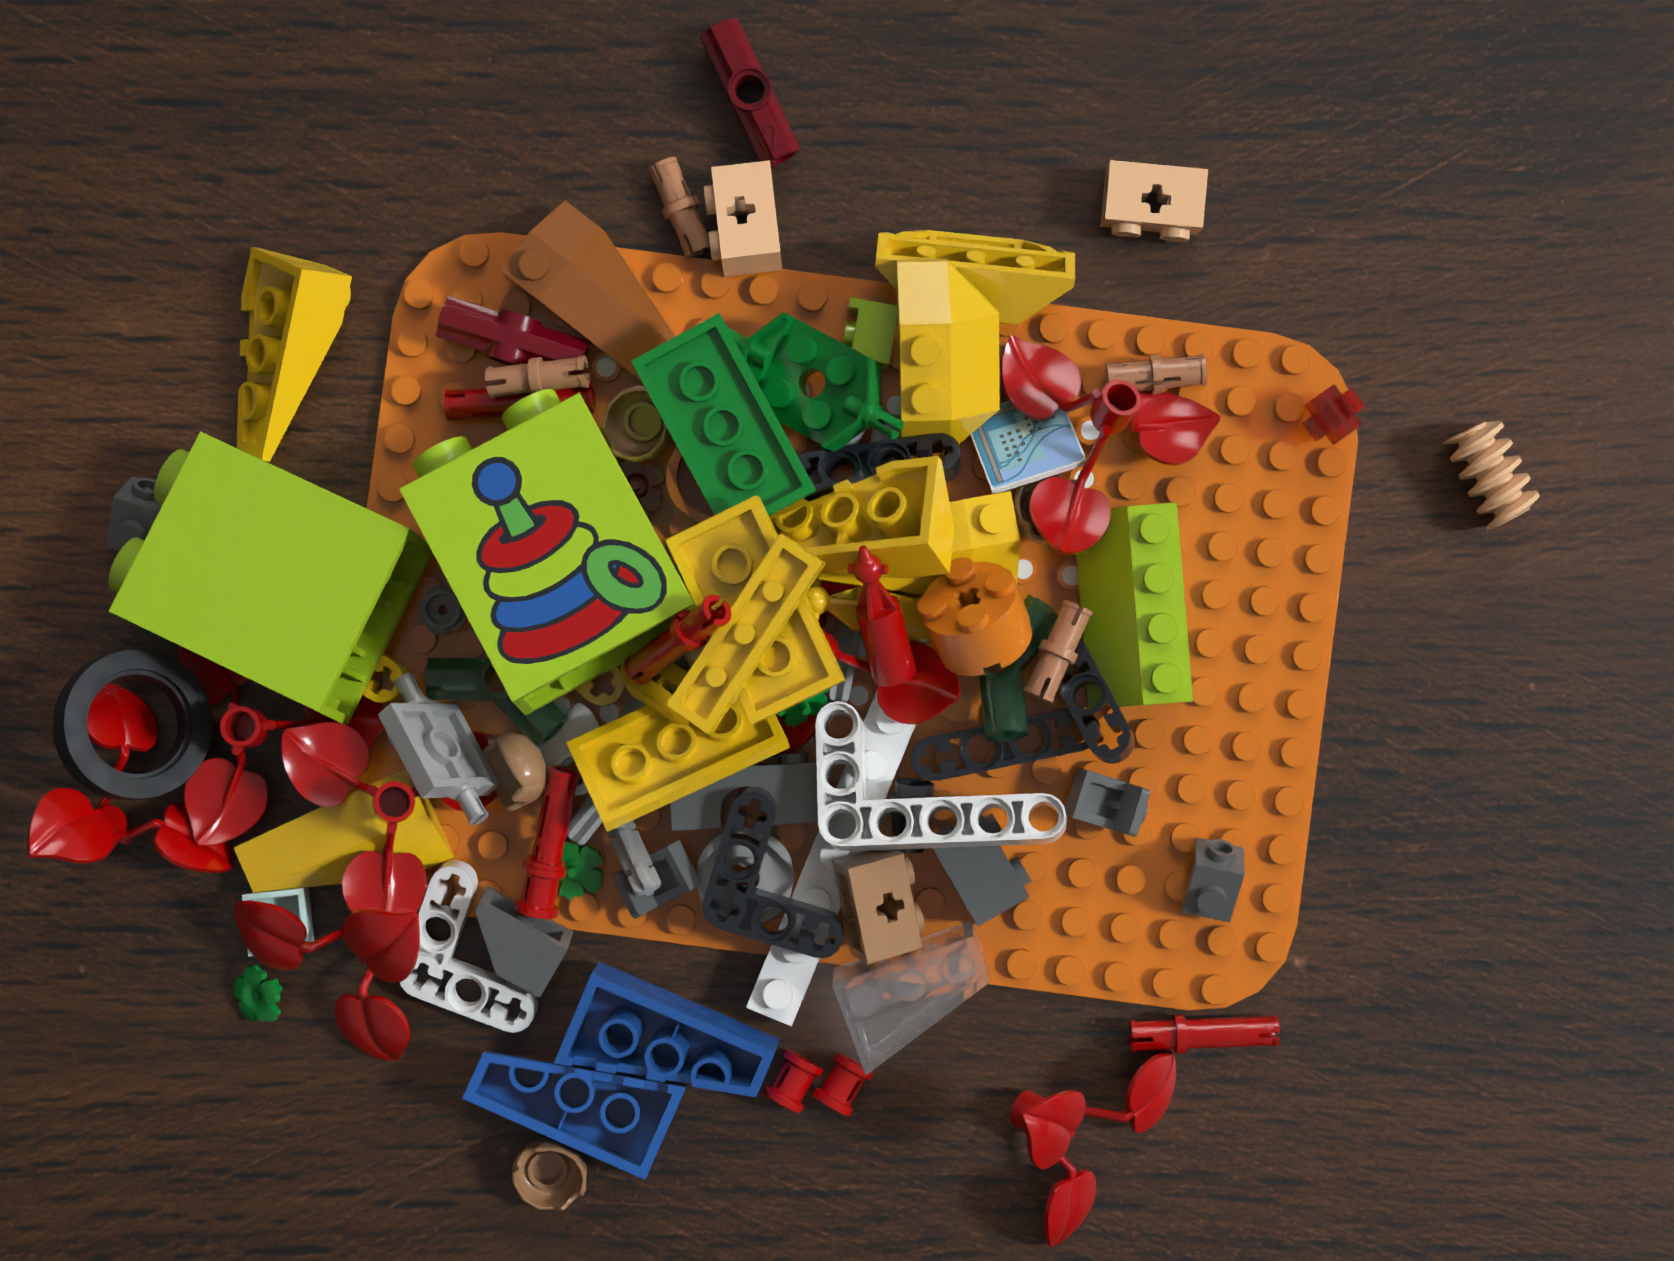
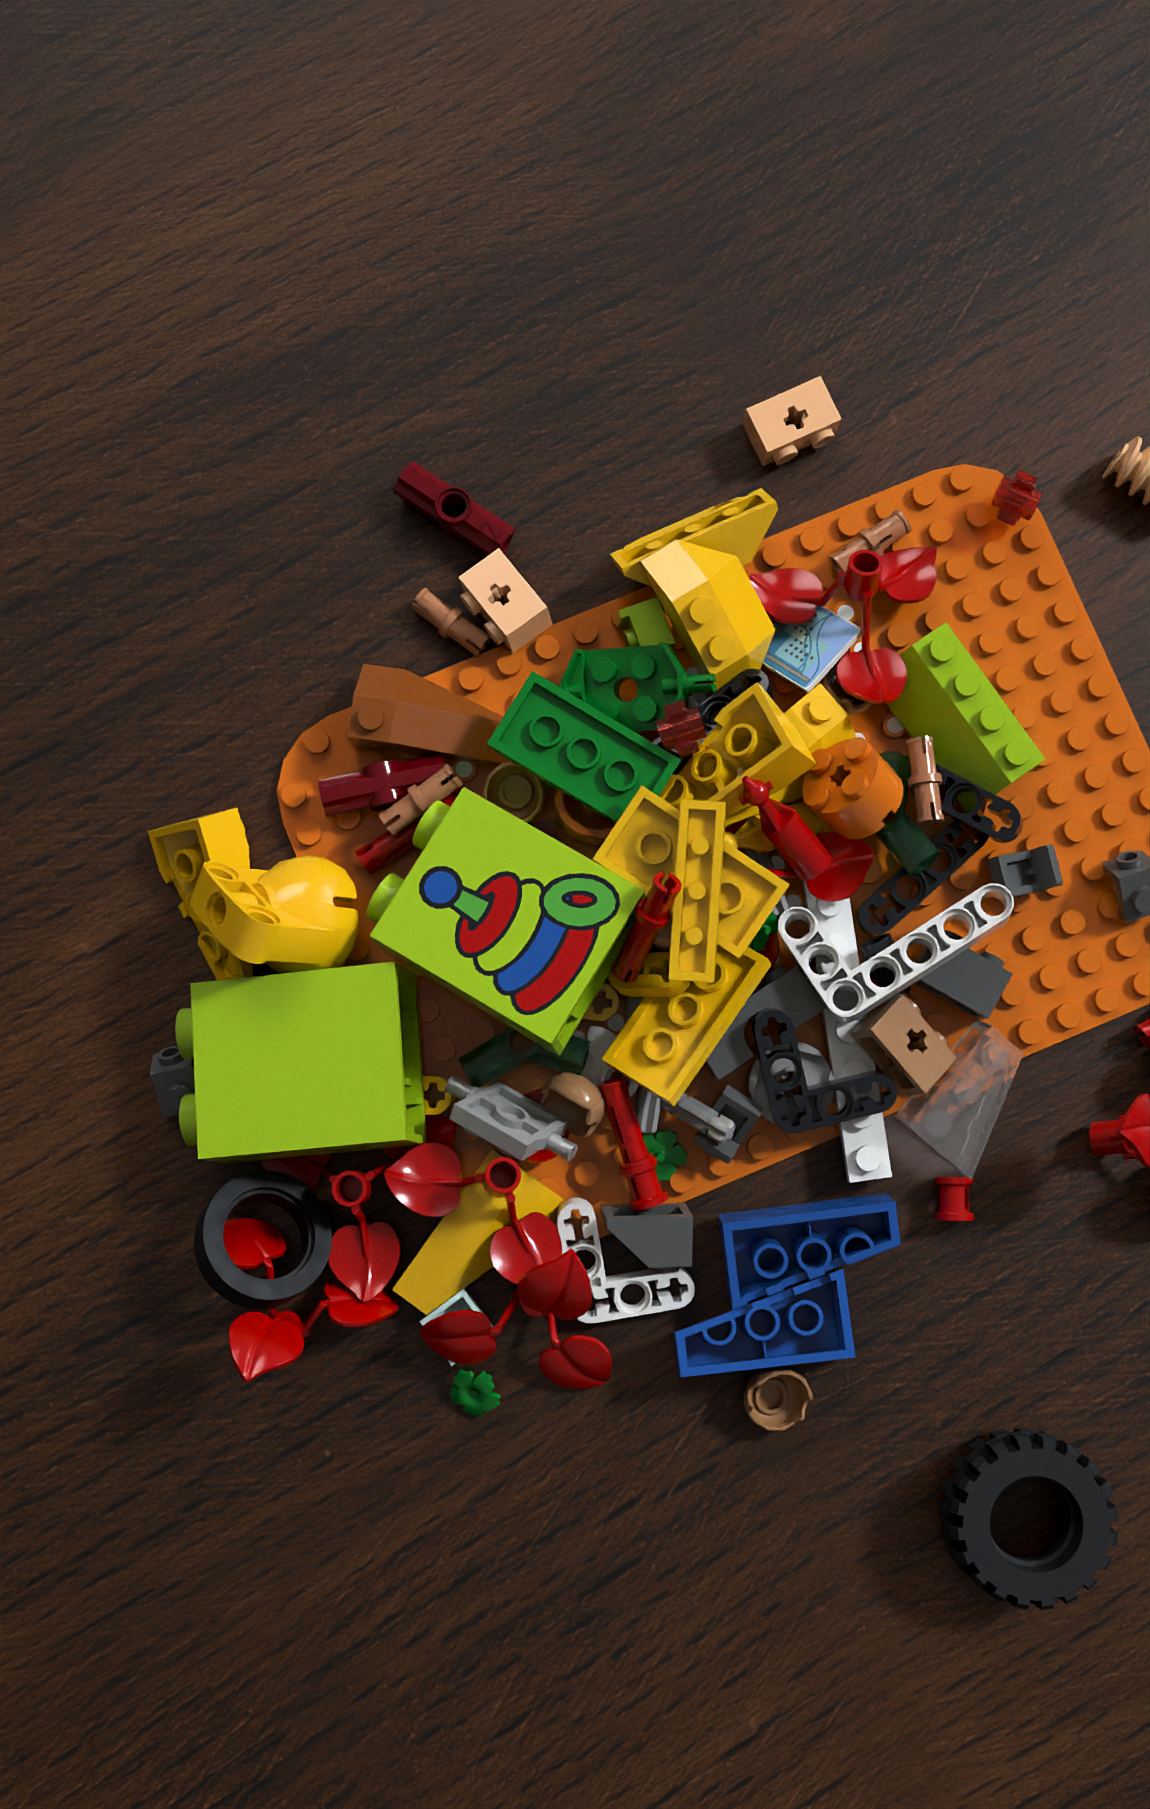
camera: 30 degrees left, 5 degrees down
(327, 411) = (280, 913): none -> yellow piece
(429, 611) = (436, 1018): dark grey plate -> none
(793, 1081) = (916, 1218): red bush -> none
(834, 459) = (681, 728): none -> clear red gear

